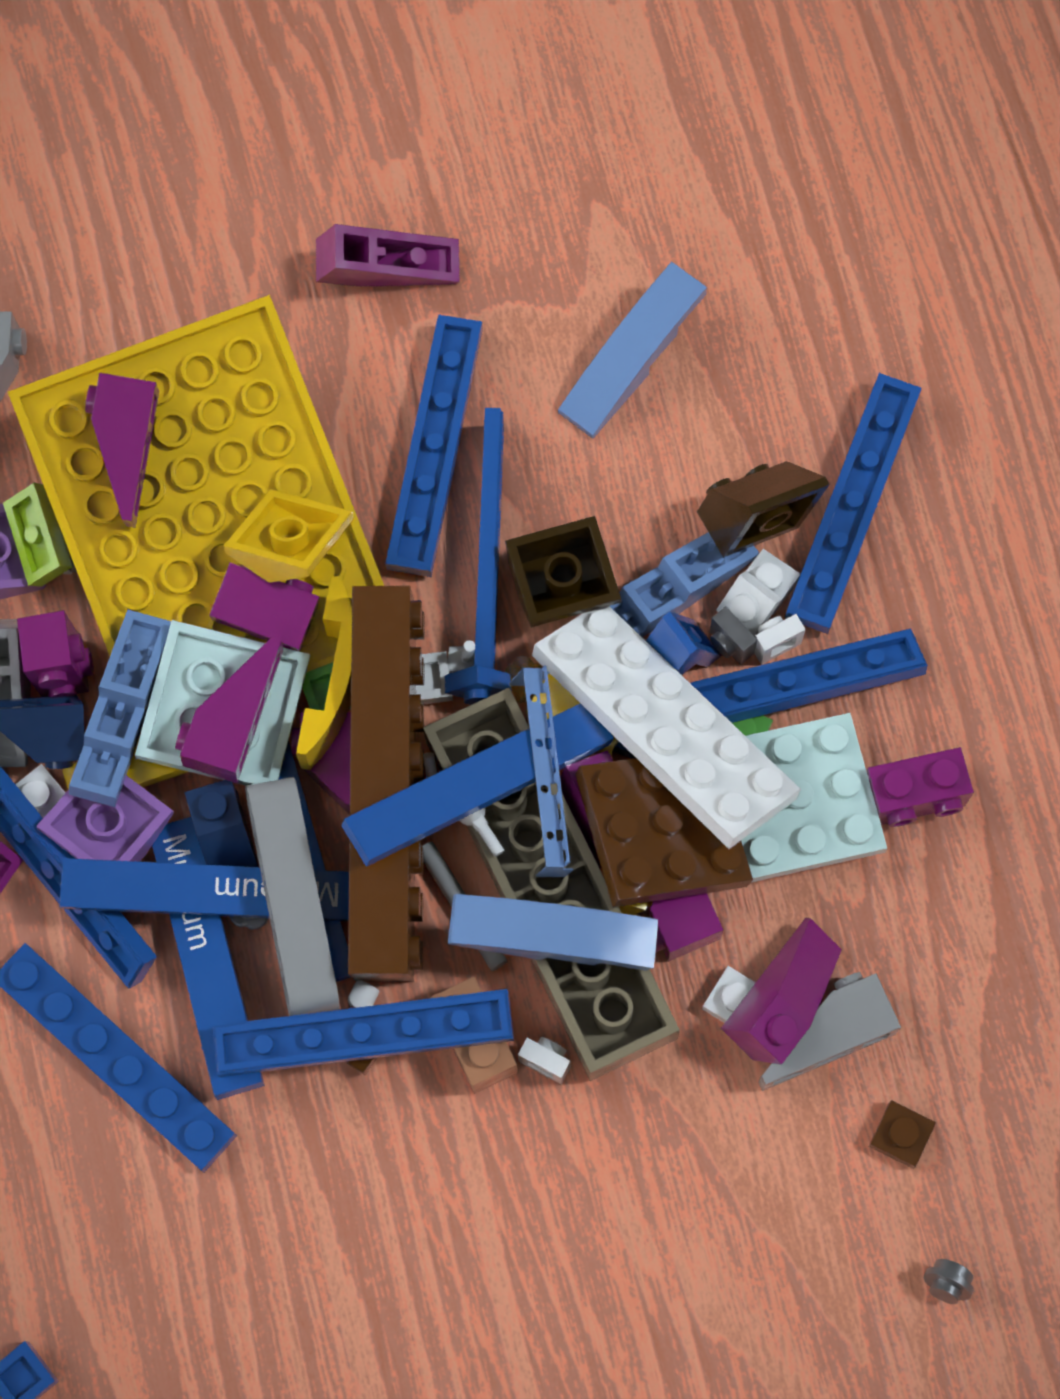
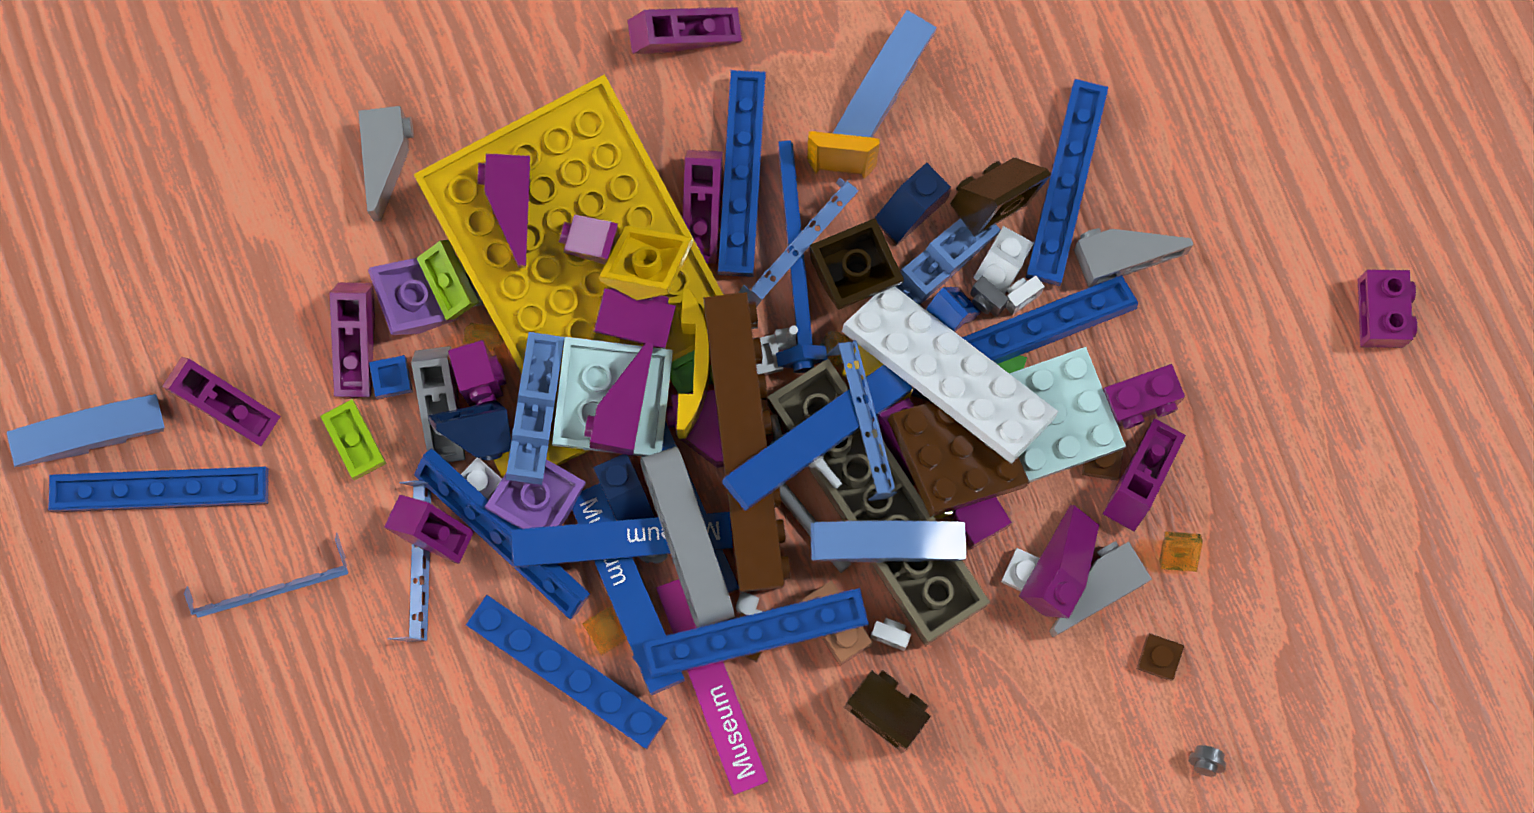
camera: 10 degrees left, 5 degrees up
(76, 608) = (488, 333): none -> clear yellow plate
(171, 1009) = (605, 630): none -> clear yellow plate
(219, 497) = (588, 238): none -> slope
(306, 1125) = (717, 703): none -> dark pink tile
(379, 472) = (703, 199): none -> magenta slope
(496, 539) = (801, 242): none -> medium blue piece
(527, 1158) = (888, 711): none -> dark brown slope
(565, 430) = (842, 153): none -> light orange slope
(649, 506) = (913, 203): none -> dark blue slope
(859, 873) = (1104, 467): none -> reddish brown plate
(908, 890) = (1144, 475): none -> magenta slope
(919, 599) = (1124, 252): none -> light grey slope
(945, 996) = (1181, 551): none -> clear yellow plate

